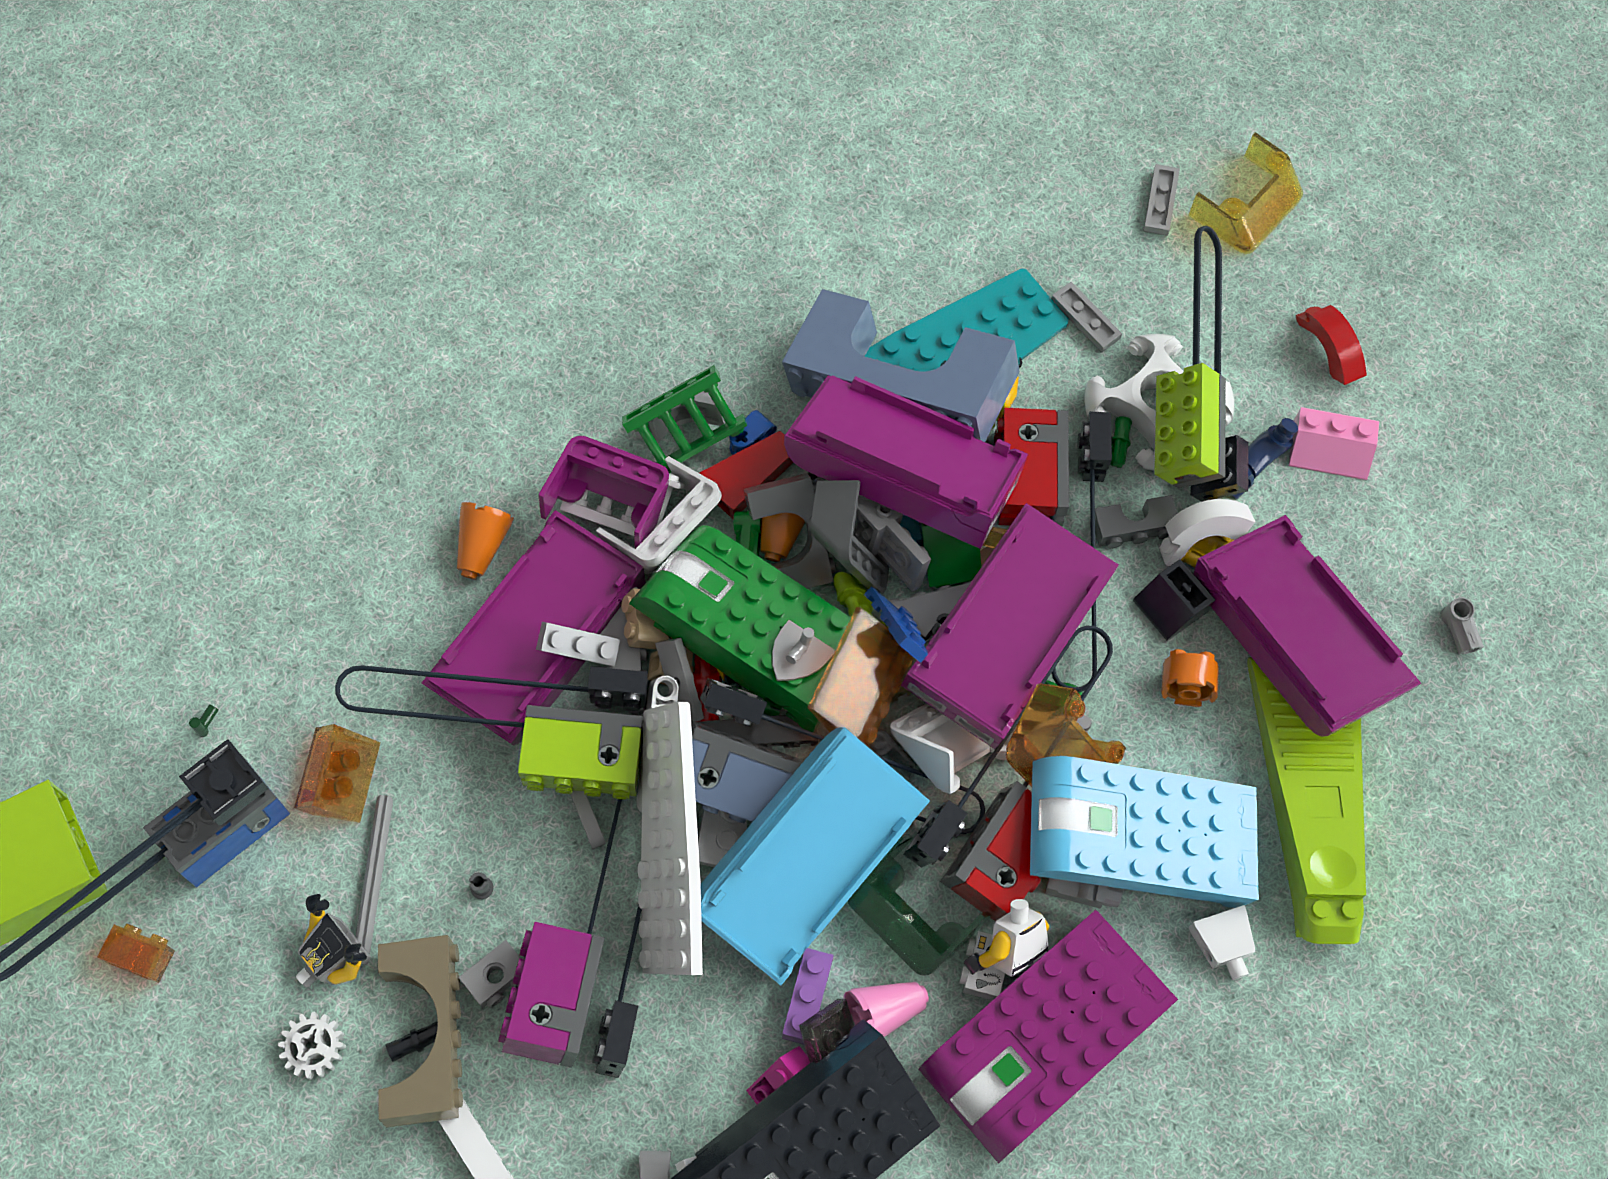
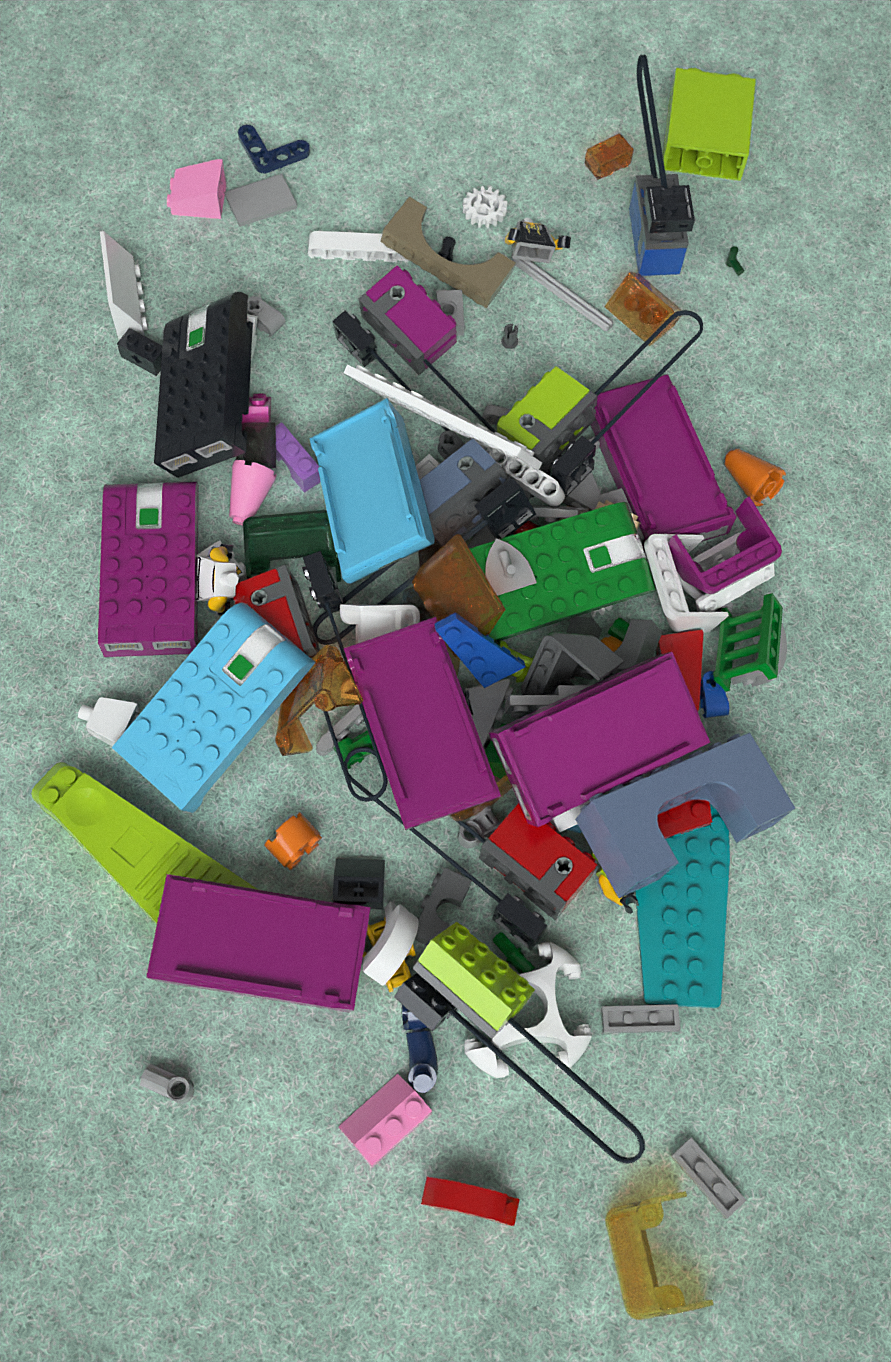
camera: 125 degrees right, 0 degrees up
(578, 644) = (622, 463): plate -> none

